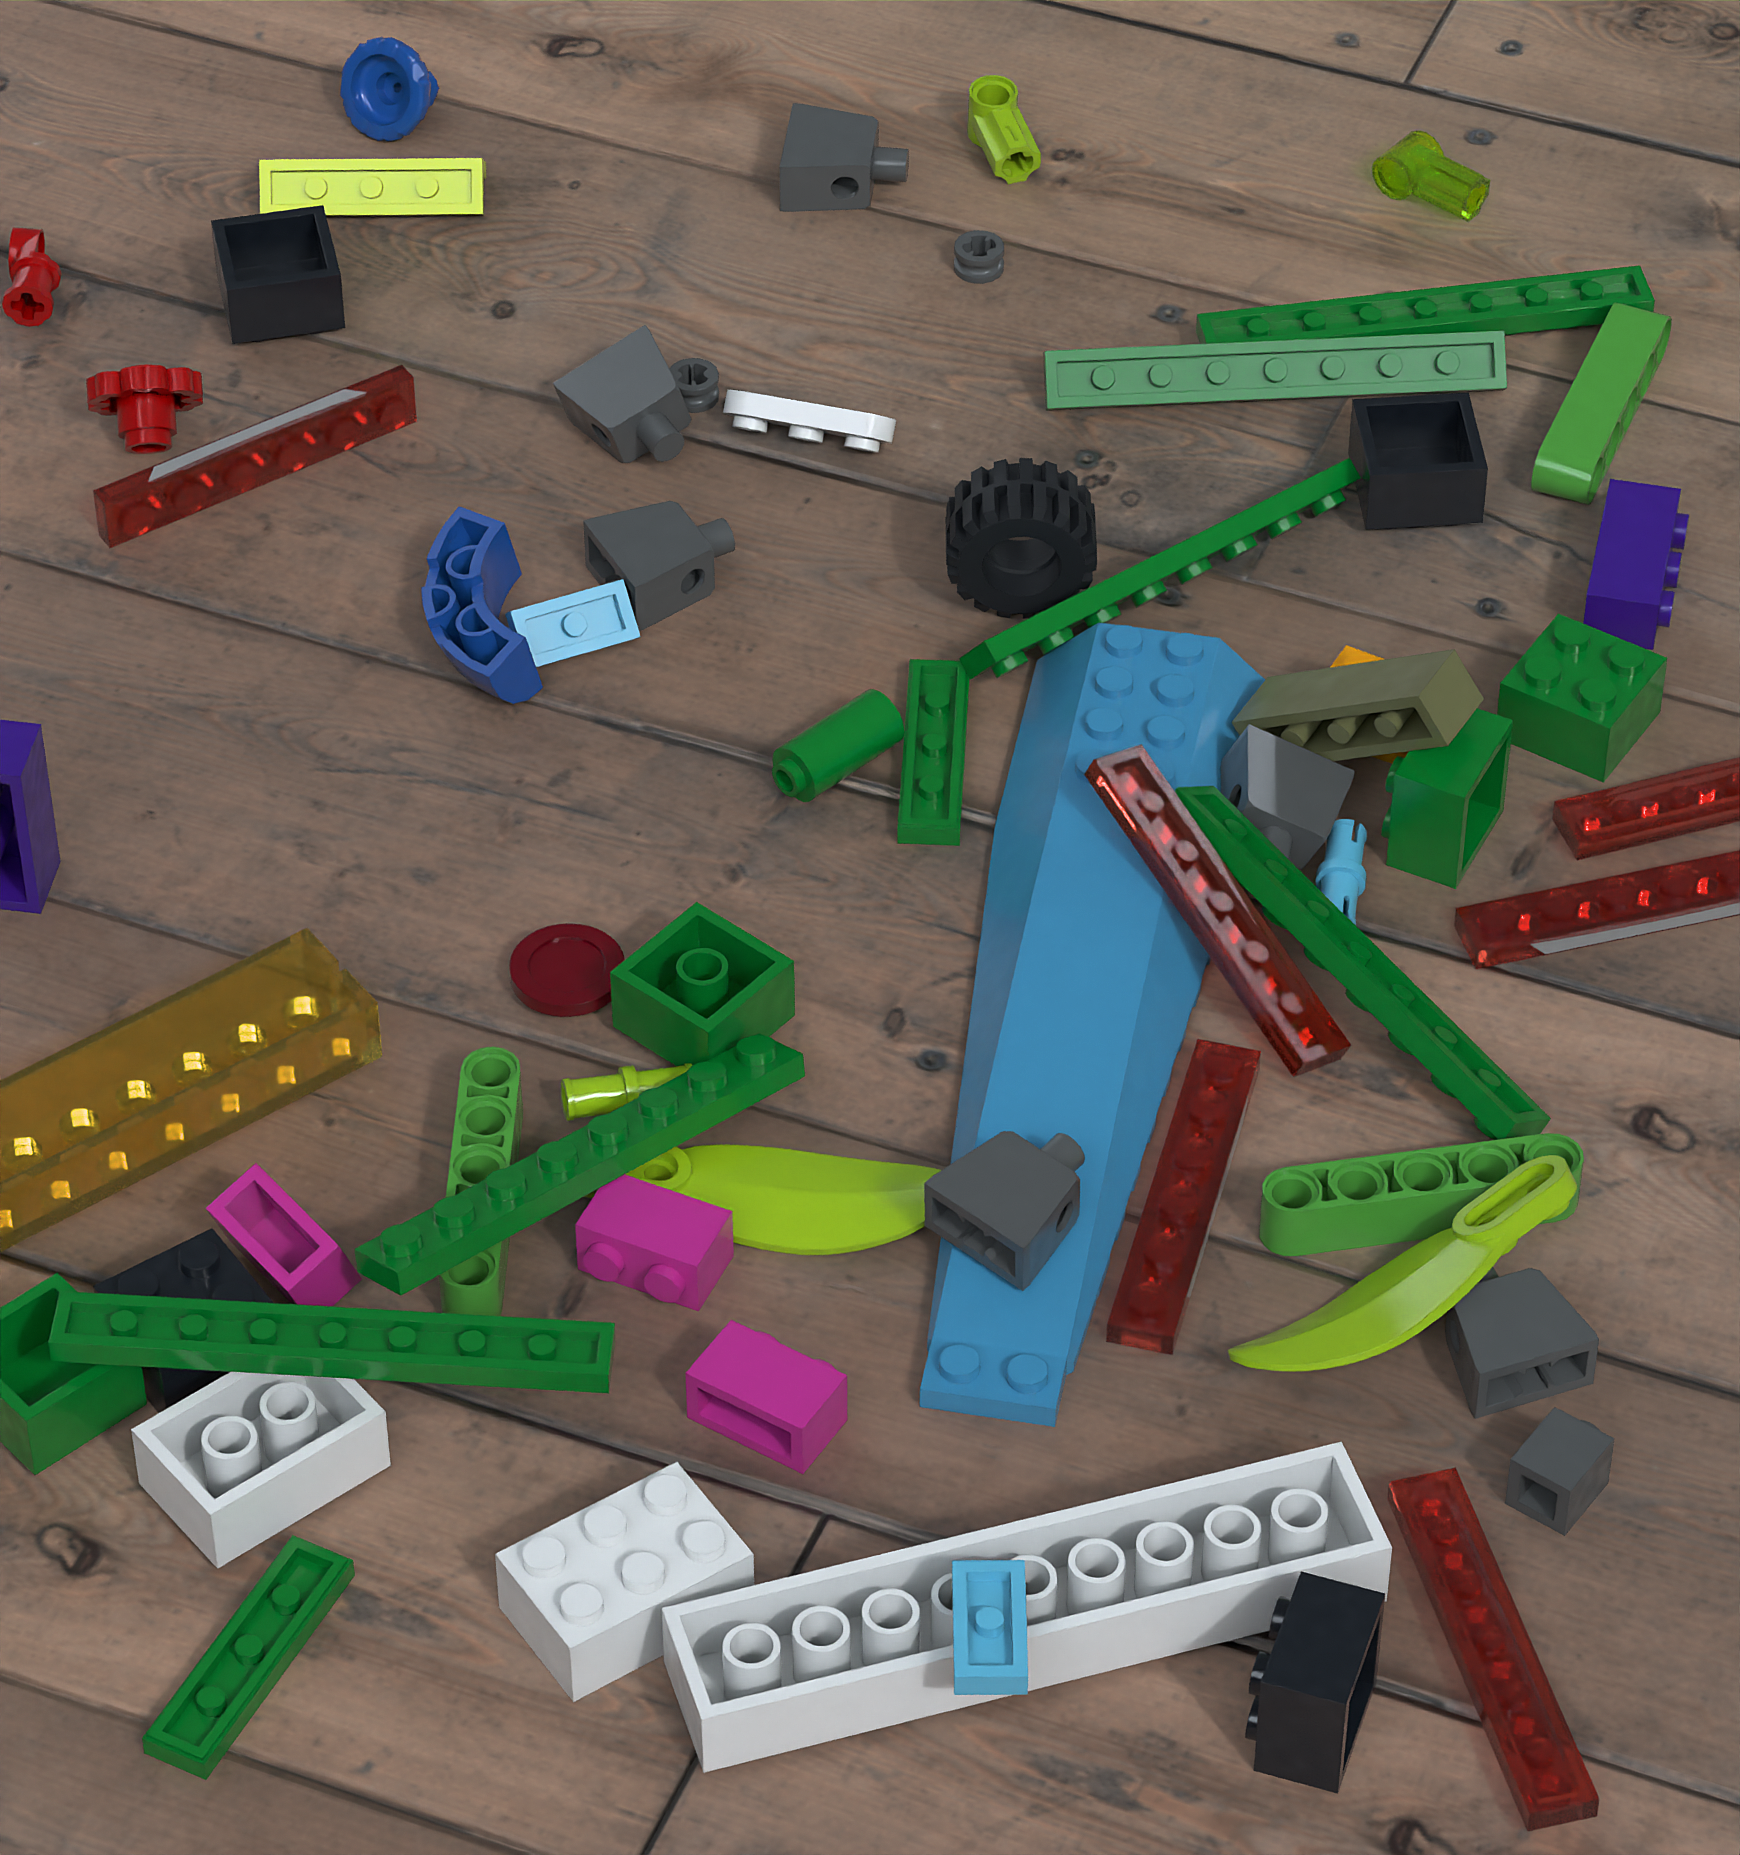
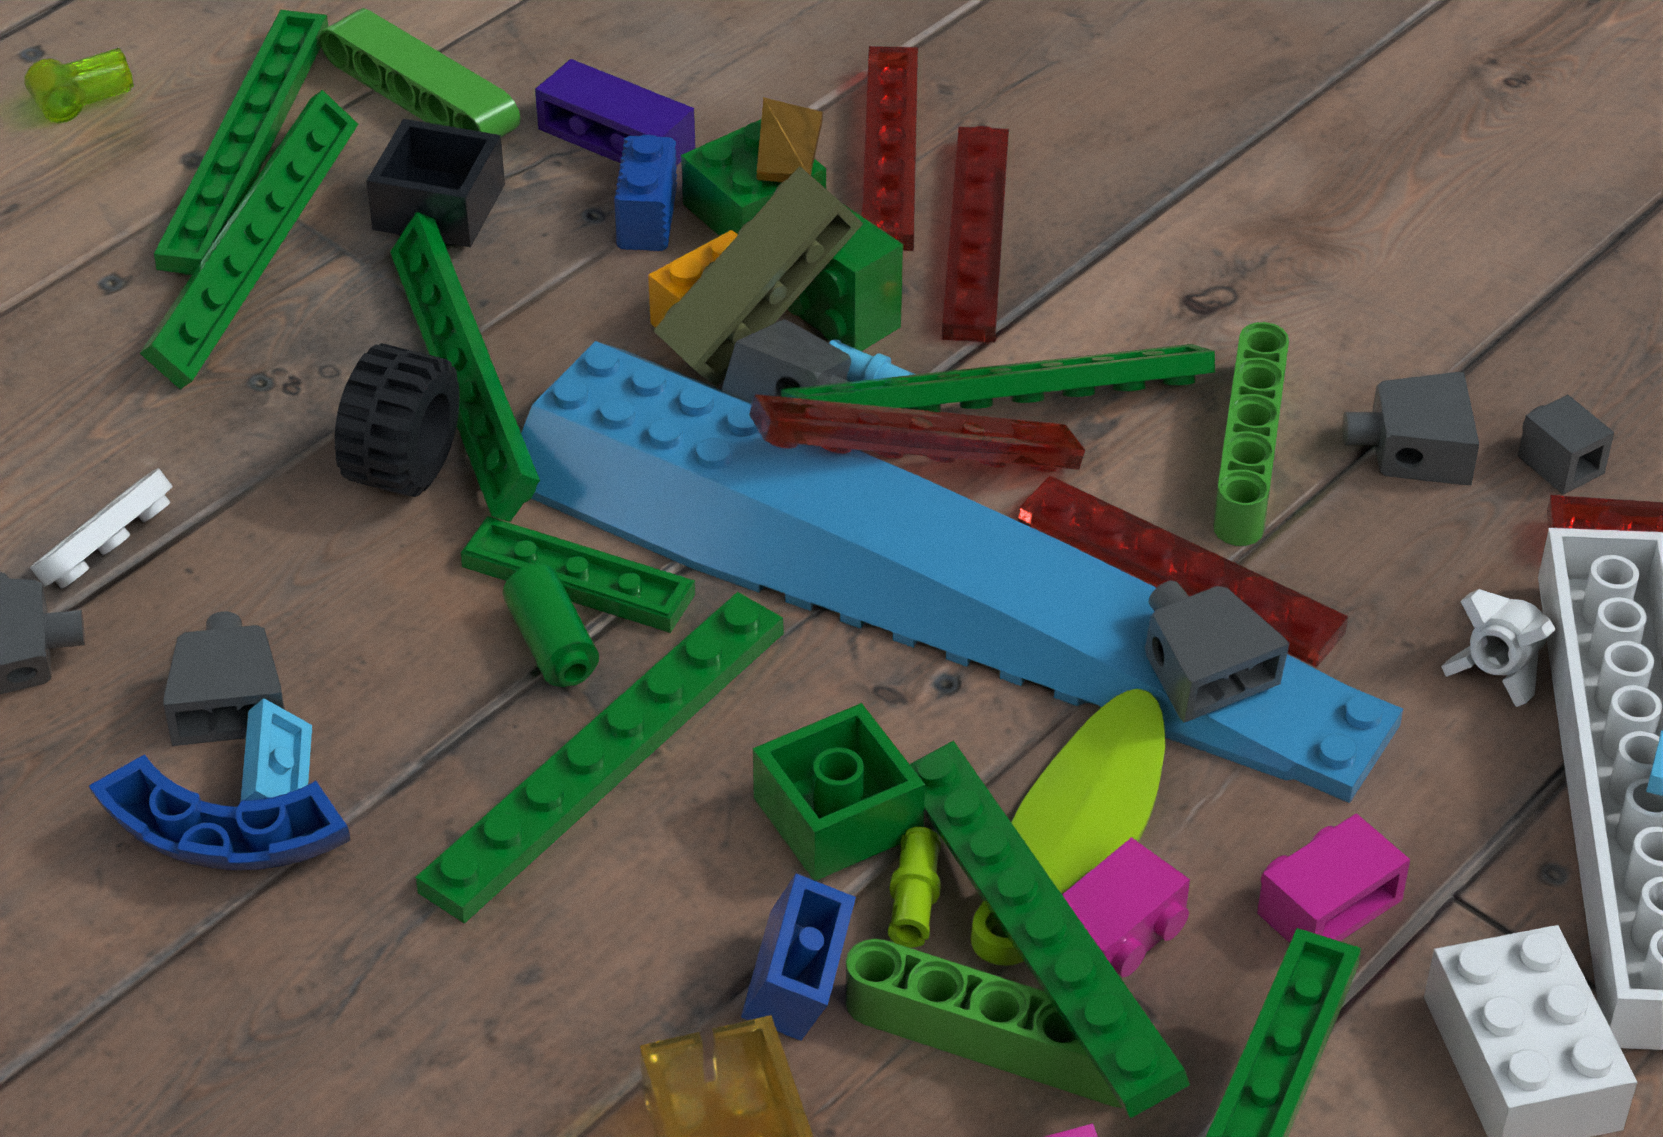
camera: 70 degrees left, 0 degrees up
(482, 1012) = (799, 956): none -> blue brick
(564, 969) = (729, 891): dark red piece -> none
(711, 840) = (598, 758): none -> green plate
(1191, 1450) = (1503, 641): none -> white brick
(1420, 1282) = (1361, 461): lime plant -> none
(1502, 618) = (645, 193): none -> blue brick
(1606, 669) = (787, 139): none -> pearl gold slope

